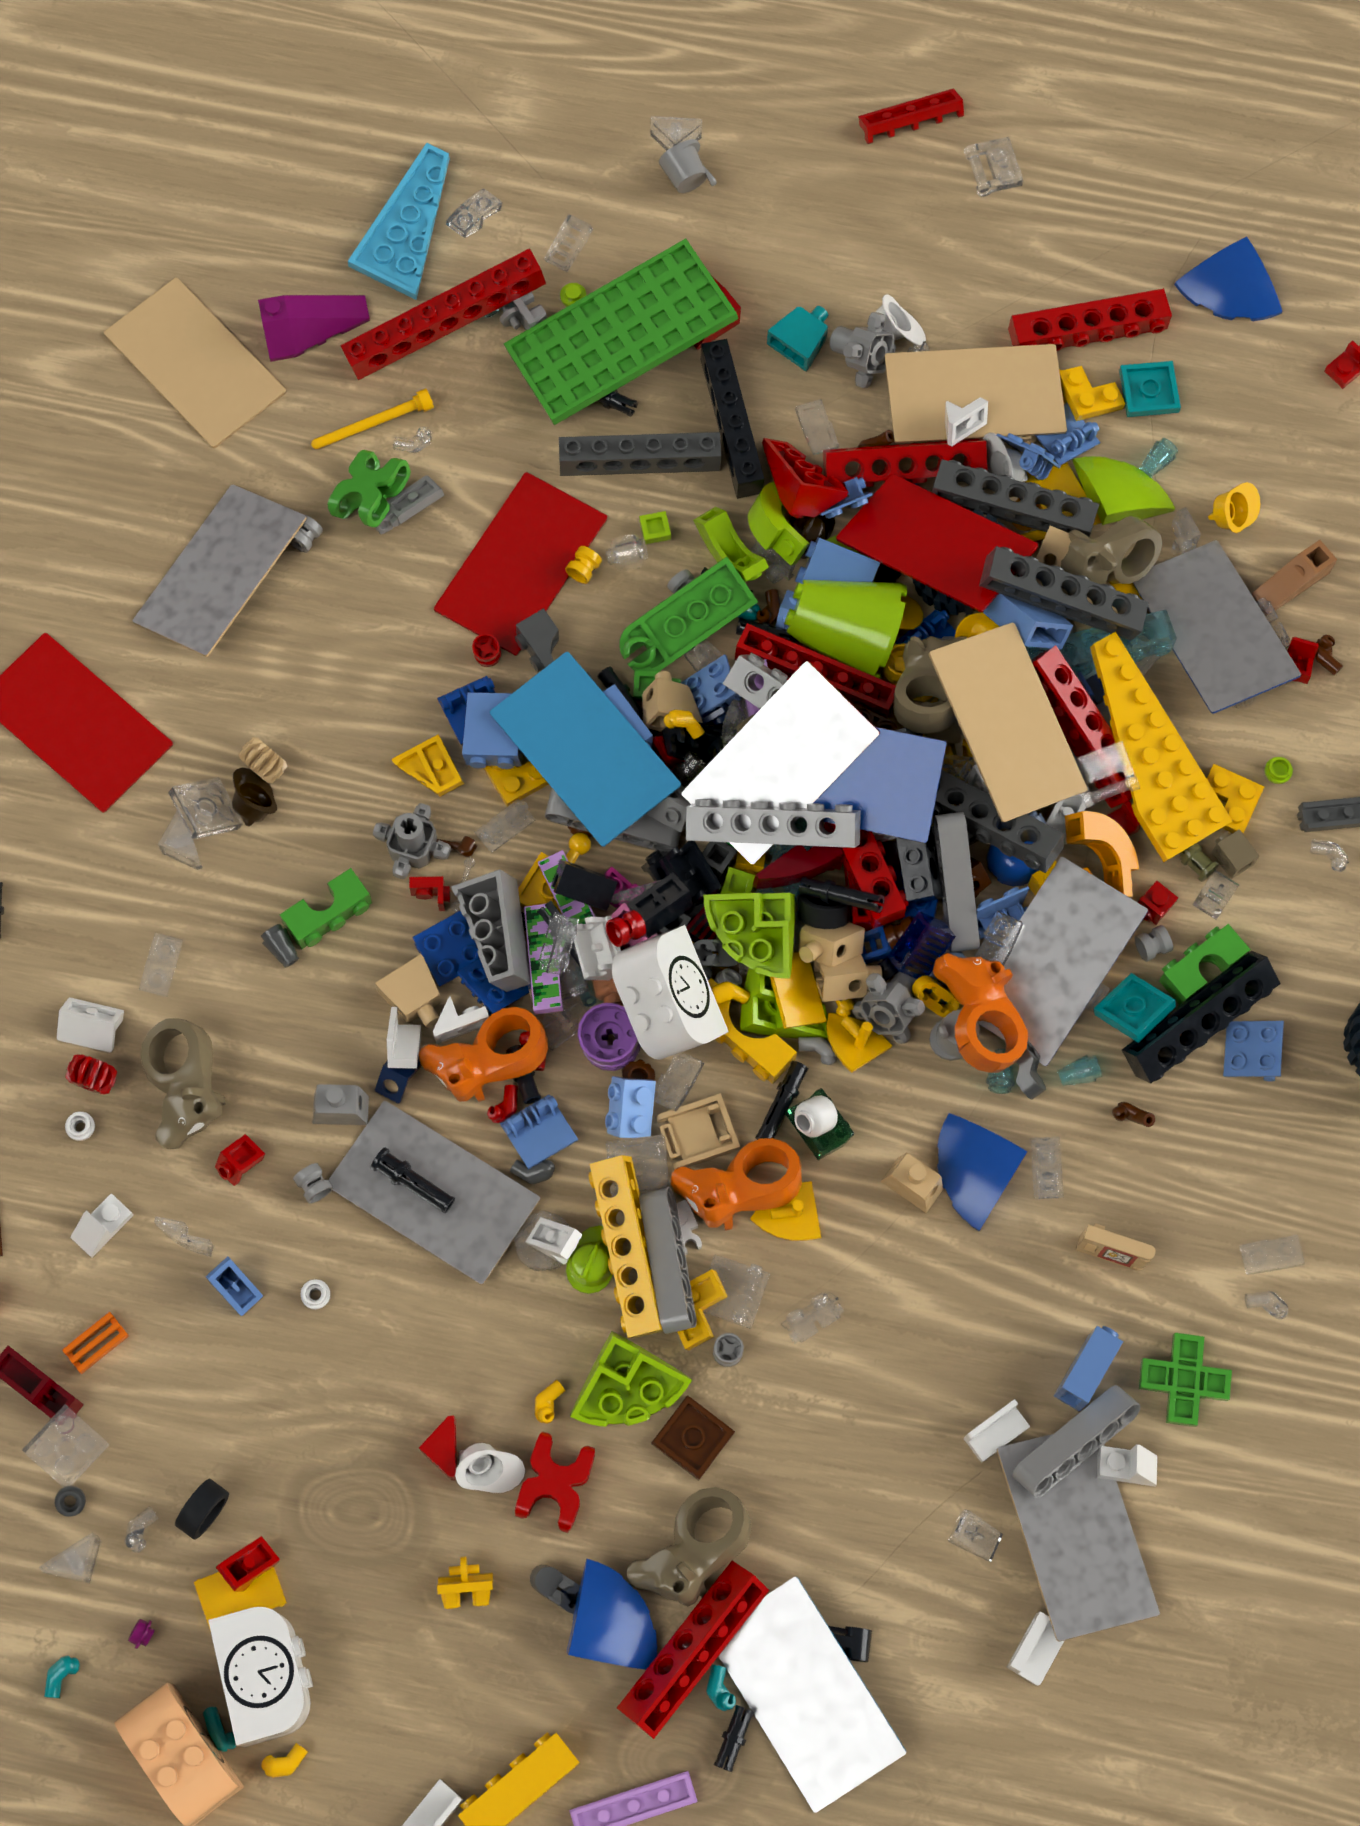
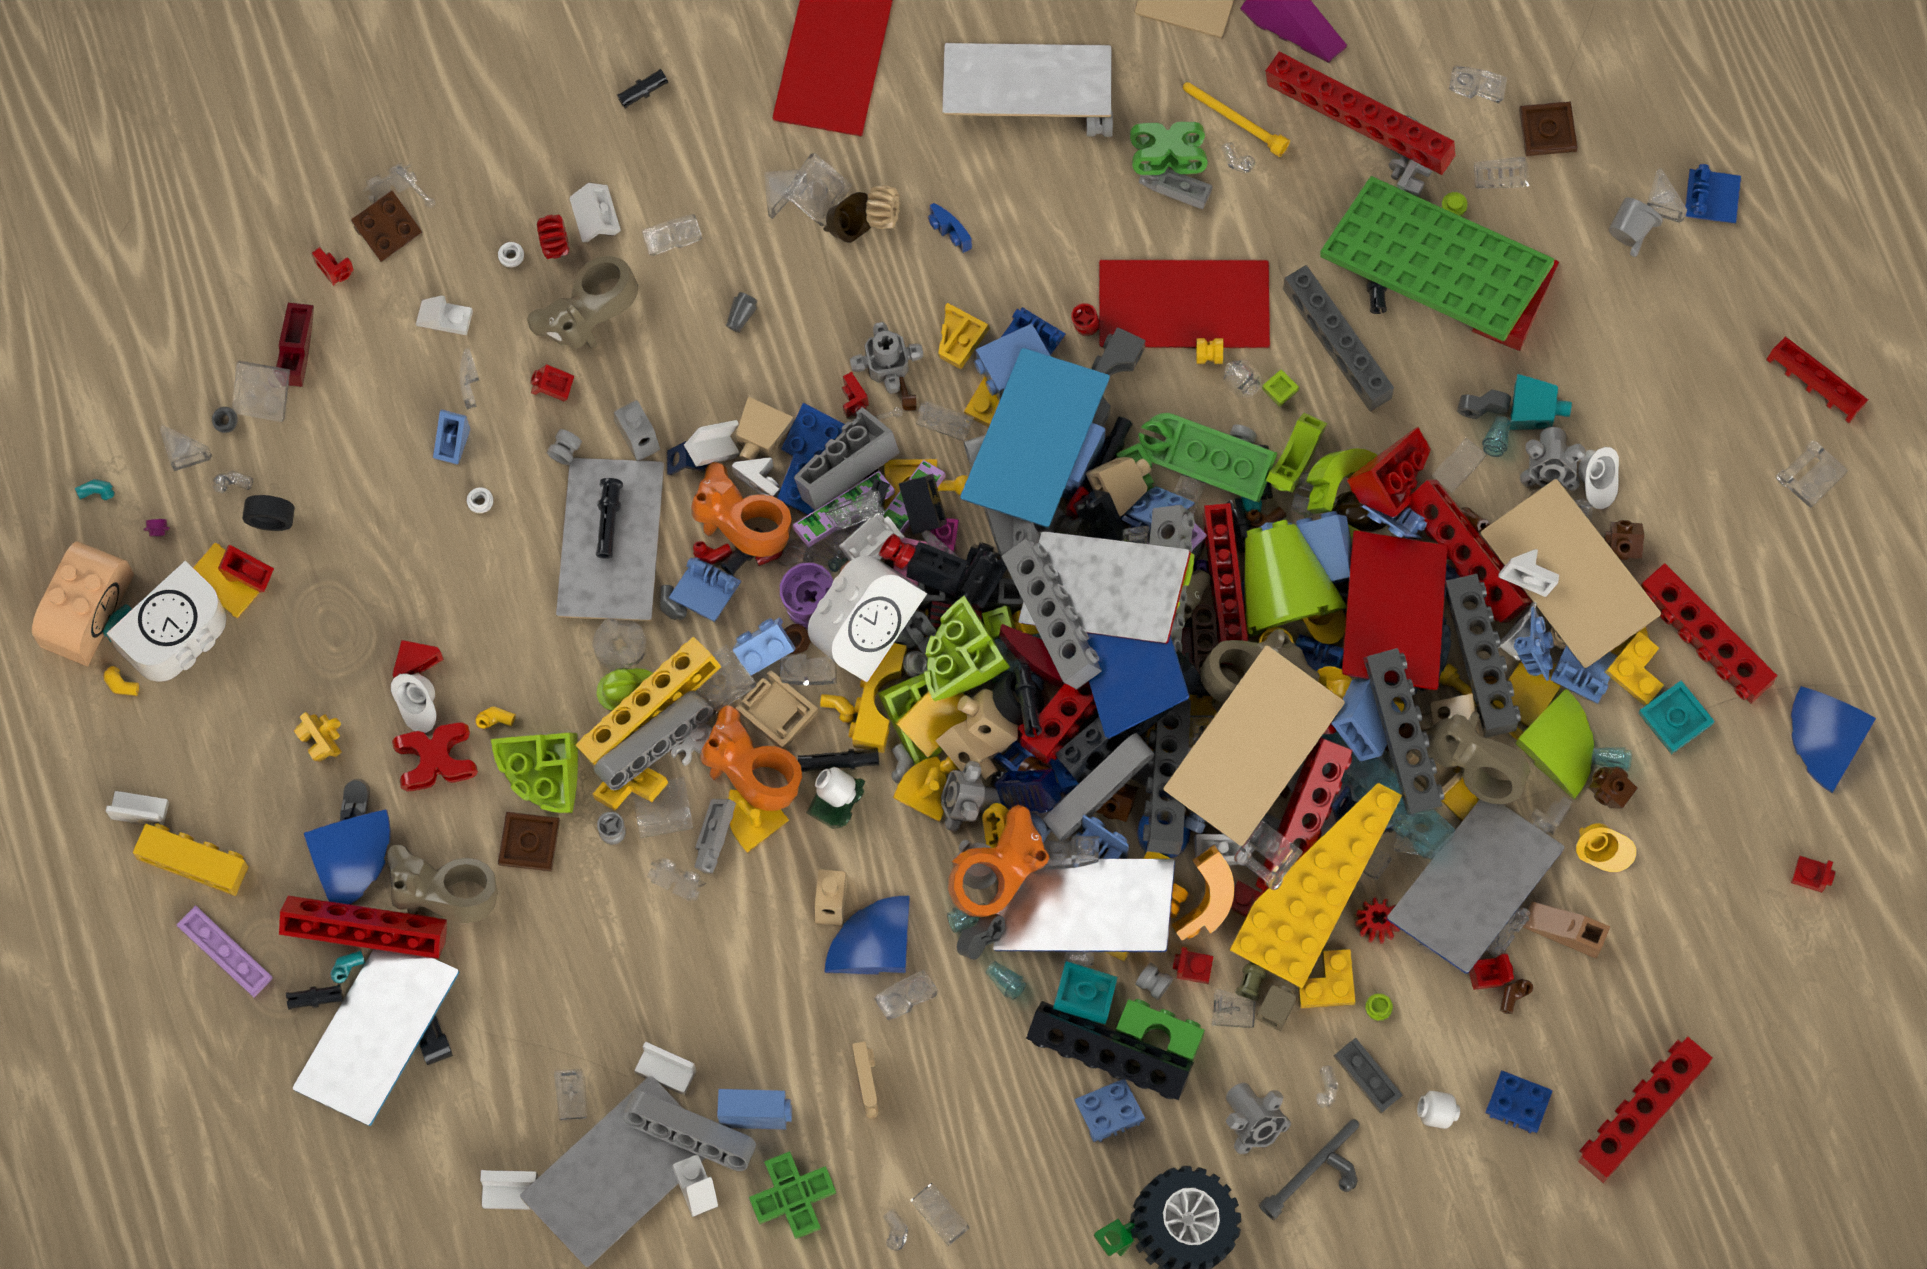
camera: 65 degrees right, 0 degrees up
(87, 1335) = (336, 351): orange tile -> none
(310, 716) = (947, 223): none -> blue slope
(310, 925) = (809, 339): bright green arch -> none
(401, 234) = (1418, 39): medium azure wing -> none
(550, 185) = (1548, 128): none -> reddish brown tile
(554, 1239) = (619, 647): white slope -> none
(683, 719) = (1106, 498): yellow arm -> none
(695, 96) = (1712, 195): none -> blue hinge
(726, 991) = (899, 662): yellow arm -> none
(728, 1070) = (839, 703): none -> yellow arm
(732, 418) = (1419, 391): black brick -> none
(776, 367) = (1492, 401): none -> dark grey piece
(788, 1256) = (713, 833): none -> light grey hinge
(811, 382) = (1496, 439): none -> clear light blue cone
(969, 332) = (1625, 539): none -> reddish brown brick
(1134, 1114) = (995, 1045): reddish brown arm -> none
(1187, 471) = (1612, 787): none -> reddish brown brick
(1194, 732) = (1375, 929): none -> red gear
(1335, 926) = (1255, 1119): none -> light grey piece

